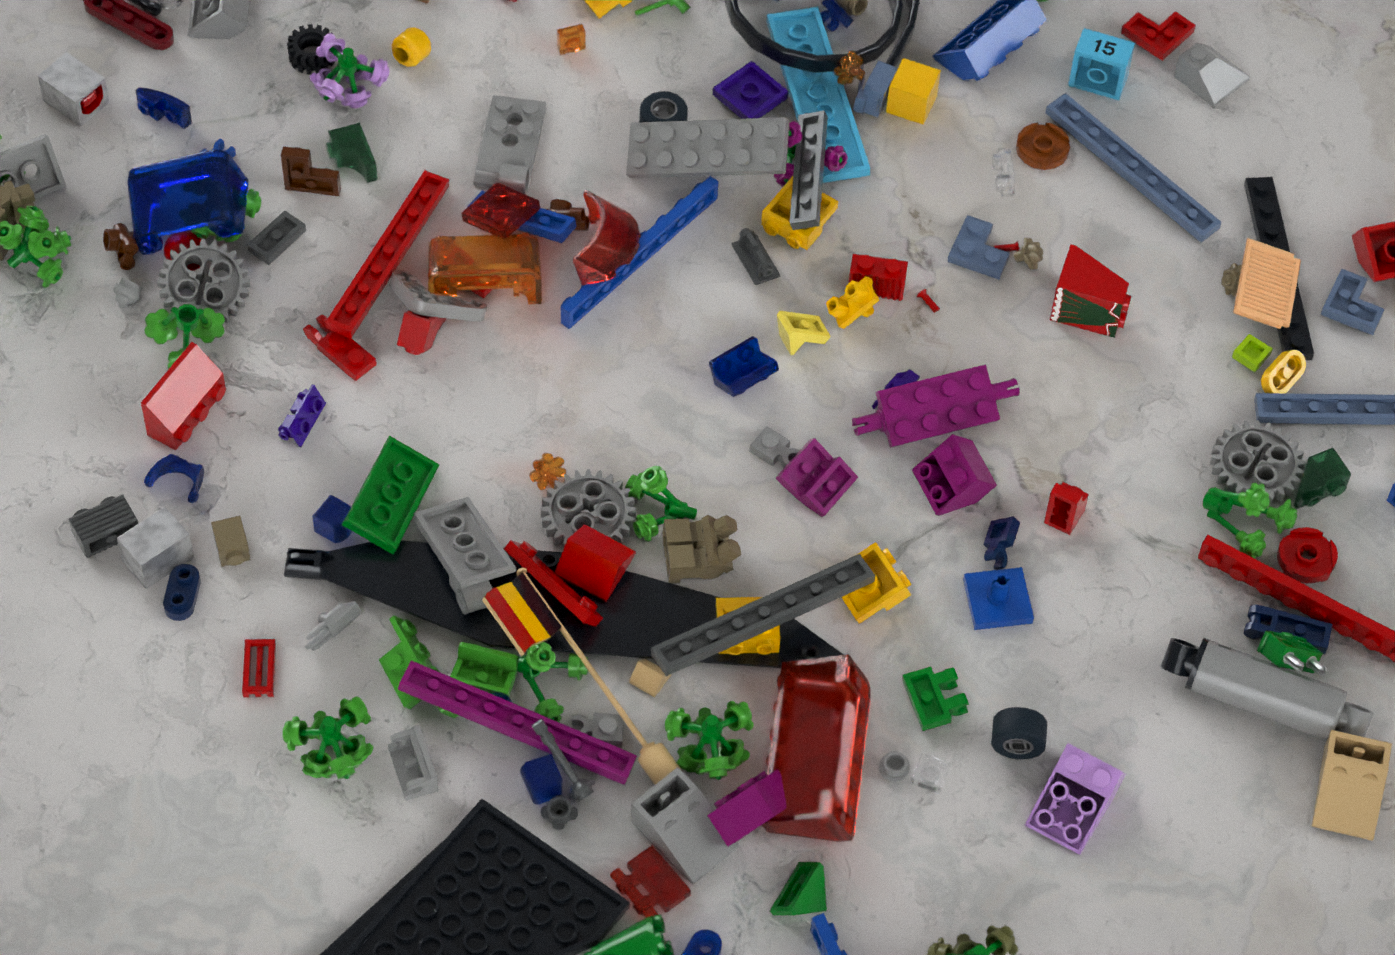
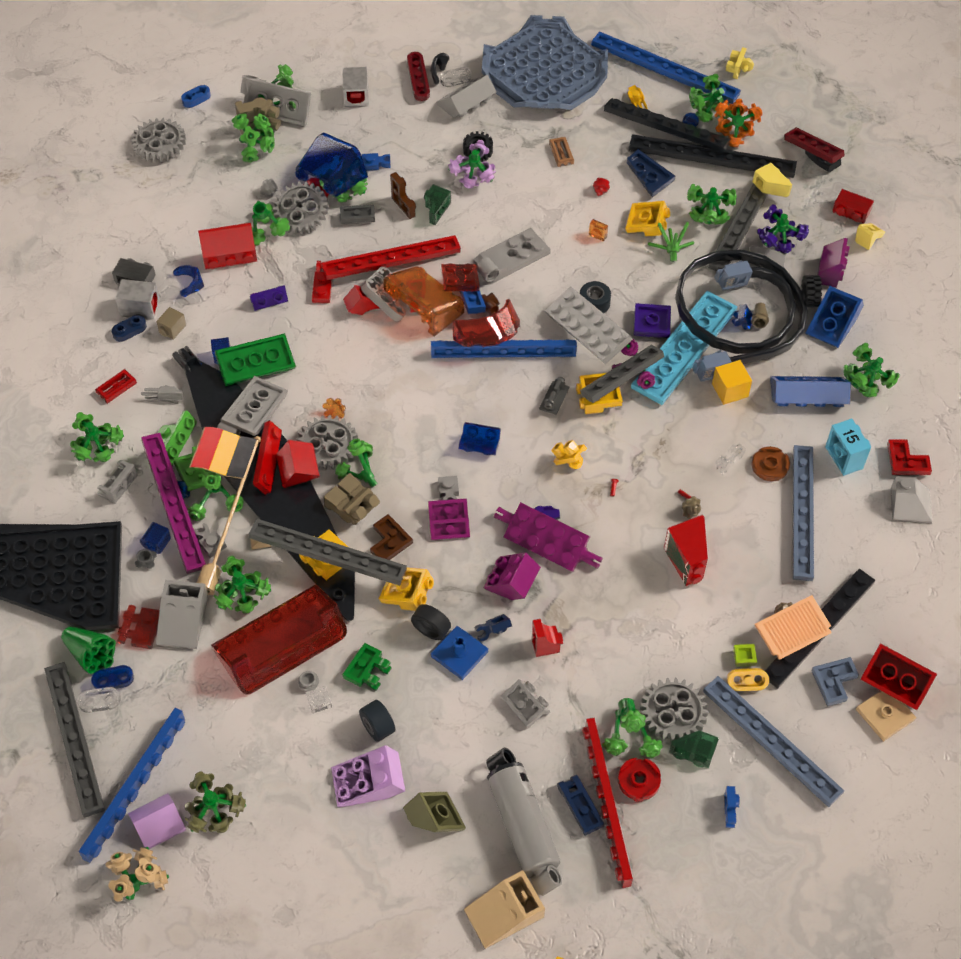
camera: 50 degrees right, 0 degrees up
(123, 242) = (290, 166): reddish brown plate -> none
(160, 104) = (382, 122): clear blue slope -> none
(411, 47) = (521, 178): yellow head -> none
(581, 787) = (165, 556): dark grey piece -> none
(748, 806) = (210, 630): magenta slope -> none
(788, 544) = (393, 541): none -> reddish brown plate
(800, 328) = (530, 445): light yellow slope -> none
(803, 891) = (193, 696): green slope -> none
(850, 68) = (708, 344): clear orange plant -> none
(886, 274) = (599, 453): red brick -> none
(944, 591) = (430, 622): none -> black tyre
(973, 253) = (666, 483): sand blue plate -> none
(1122, 584) = (525, 702): none -> light grey bracket
(1179, 768) = (433, 812): none -> olive slope
(1291, 652) = (556, 813): green piece -> none

